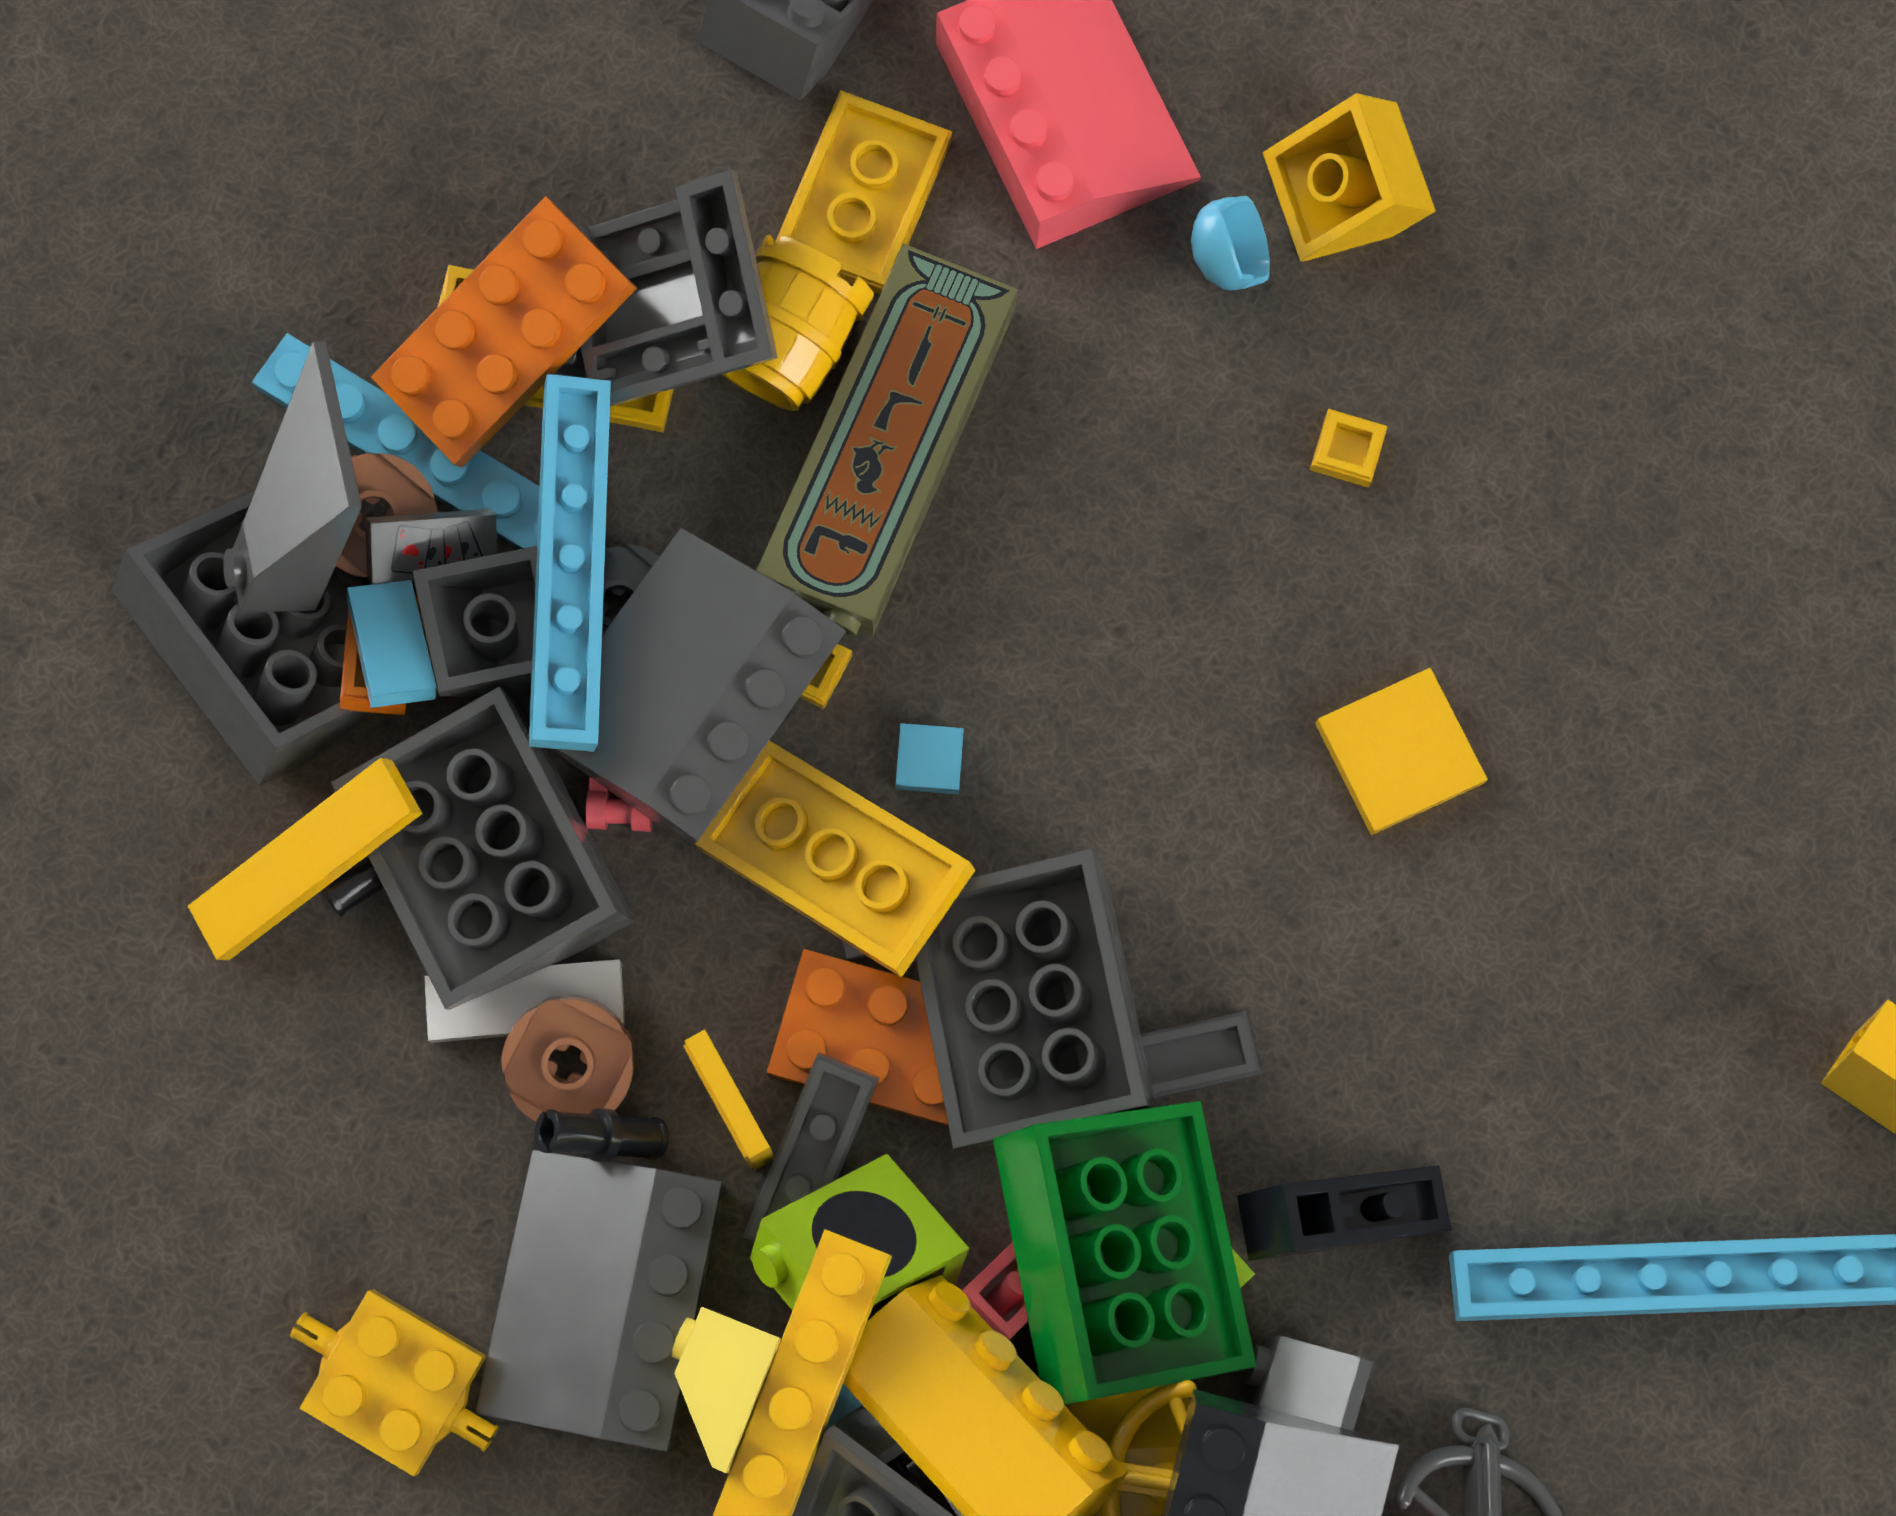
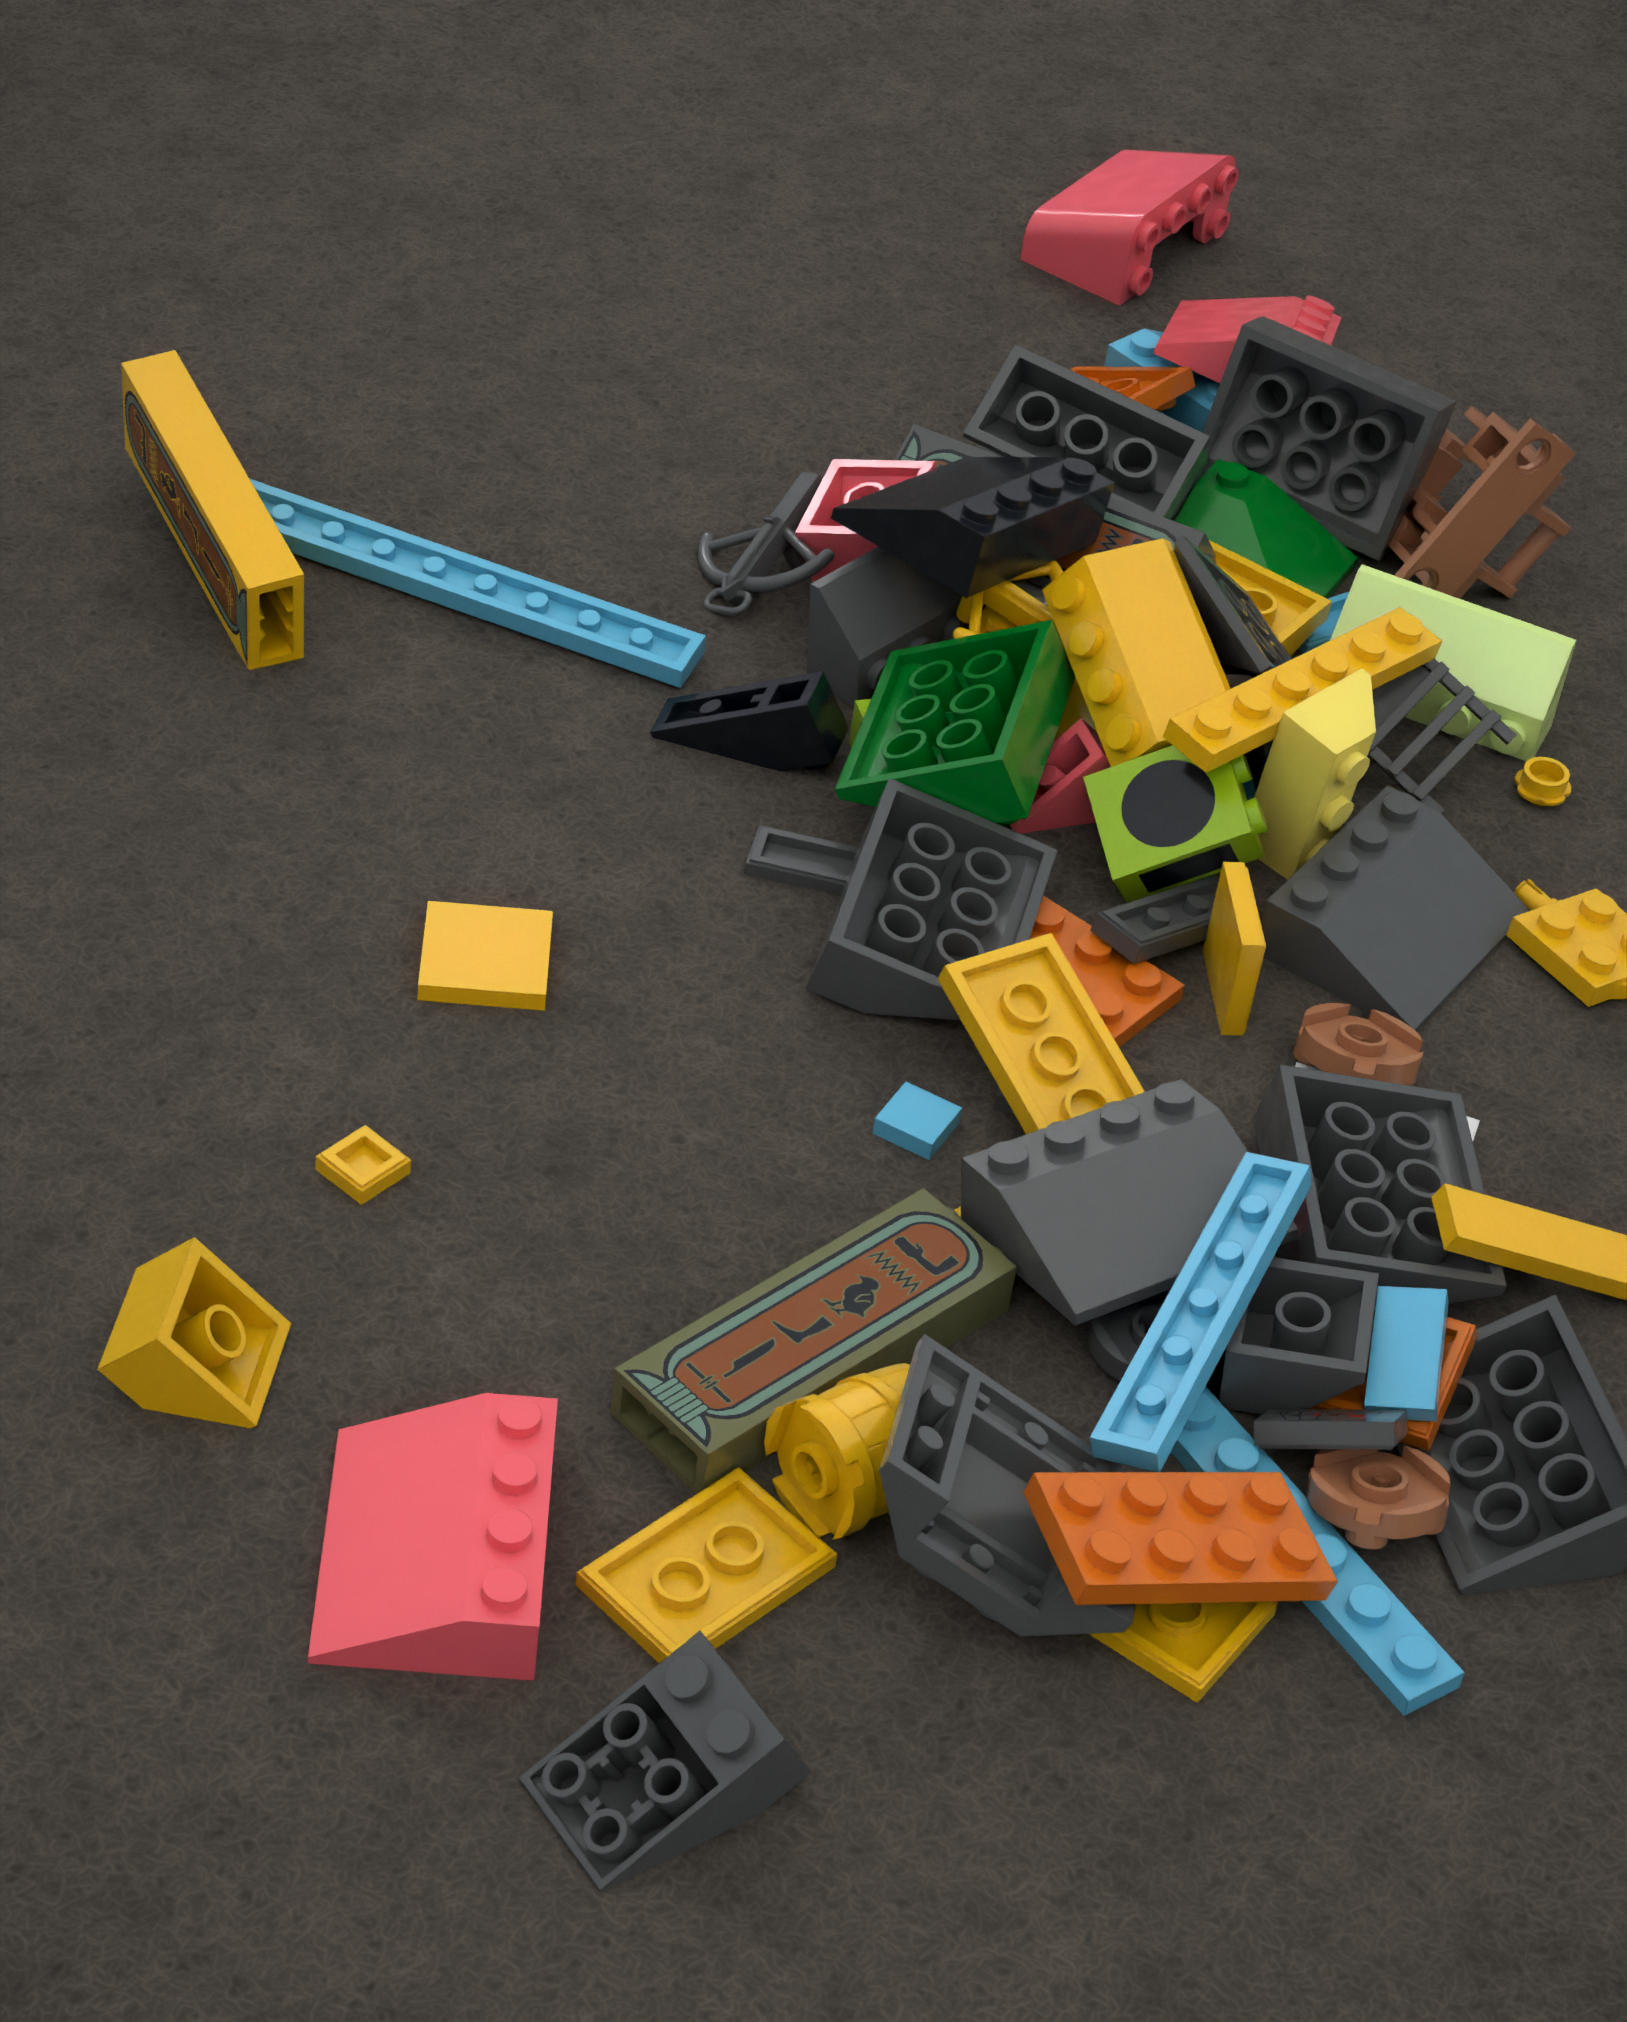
camera: 155 degrees left, 35 degrees down
(300, 503) = (1466, 1466): slope -> none
(601, 1135) = (1354, 979): black pin -> none
(1231, 244) = (365, 1342): medium azure hair -> none

